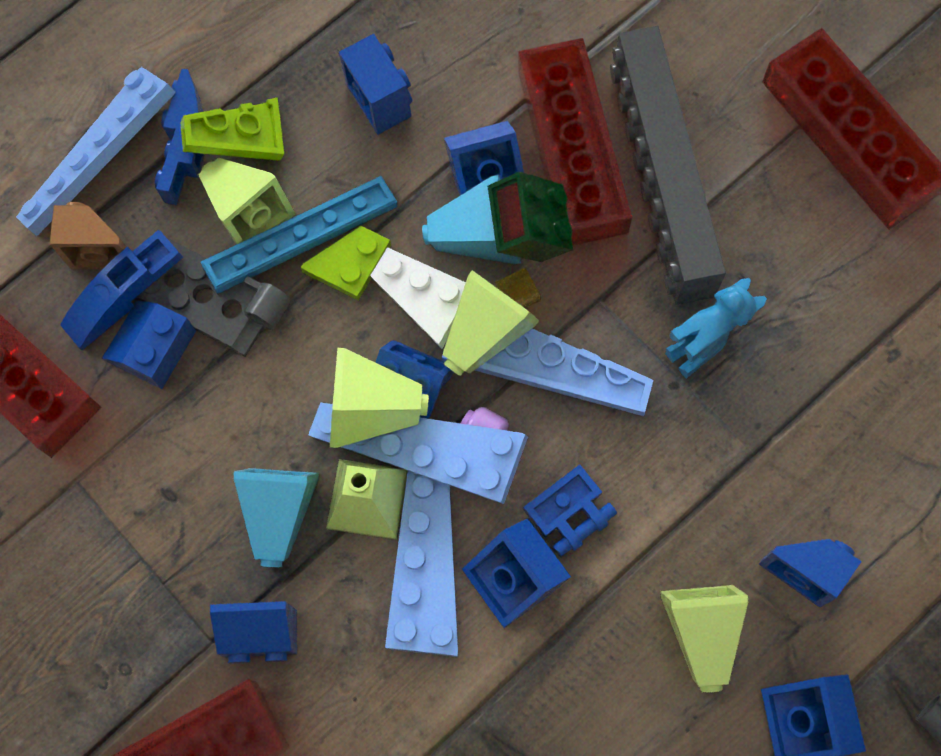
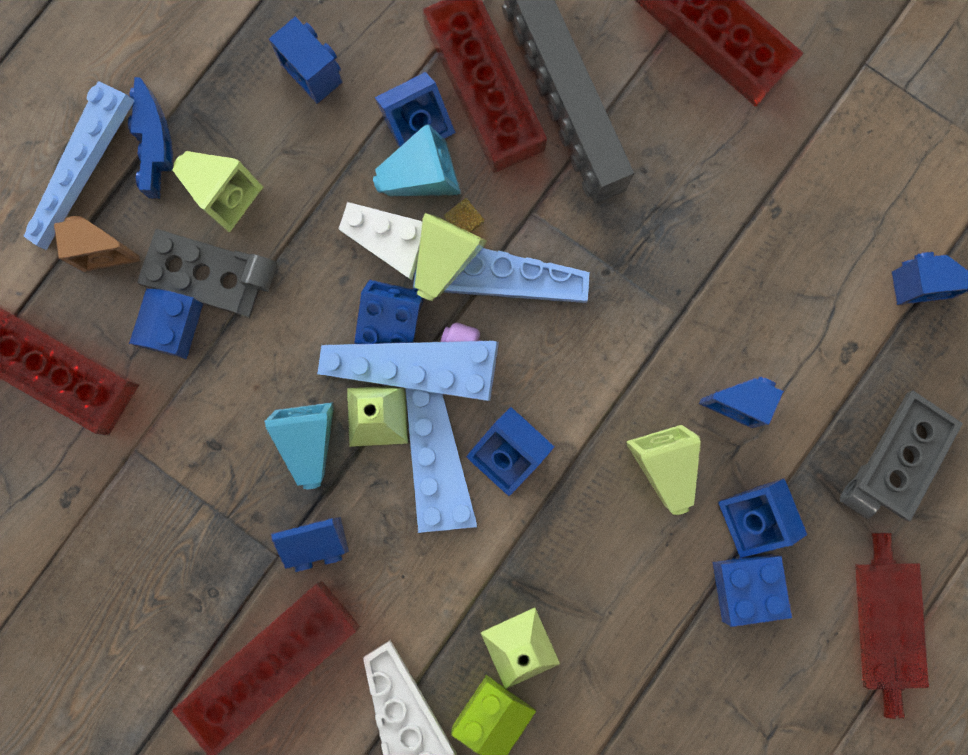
camera: 20 degrees left, 10 degrees up
(115, 286) = (126, 280): blue slope -> none
(237, 132) = (198, 125): lime wing -> none
(298, 234) = (270, 205): dark azure tile -> none
(348, 261) = (317, 220): lime wing -> none
(371, 400) = (364, 337): yellowish green slope -> none
(530, 217) = (463, 156): dark green piece -> none
(562, 502) = (536, 386): blue plate -> none
(709, 329) = (630, 220): dark azure animal -> none

